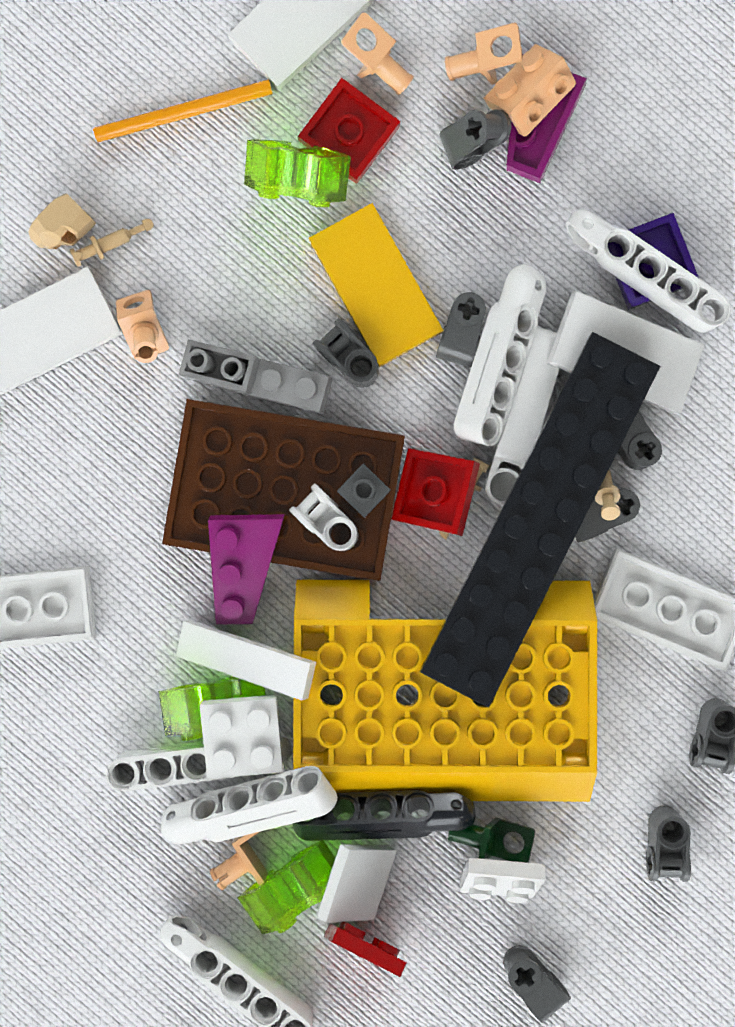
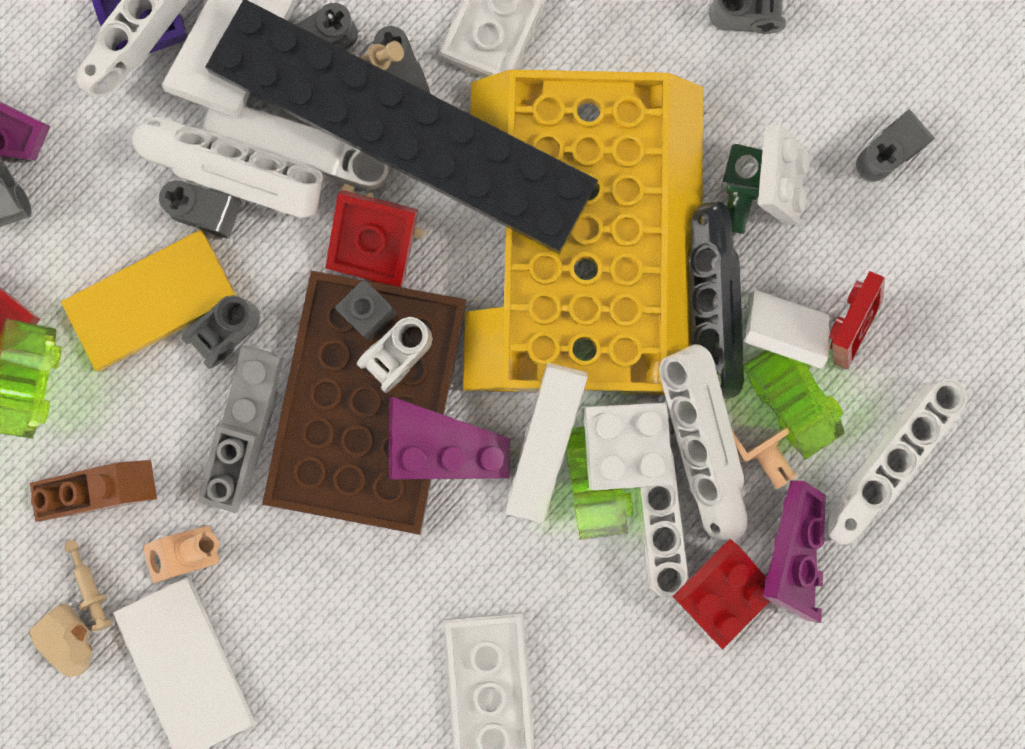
camera: 85 degrees left, 5 degrees down
(112, 825) = (724, 594): none -> red plate
(158, 888) = (794, 560): none -> magenta wing
(197, 243) = (93, 490): none -> dark orange slope

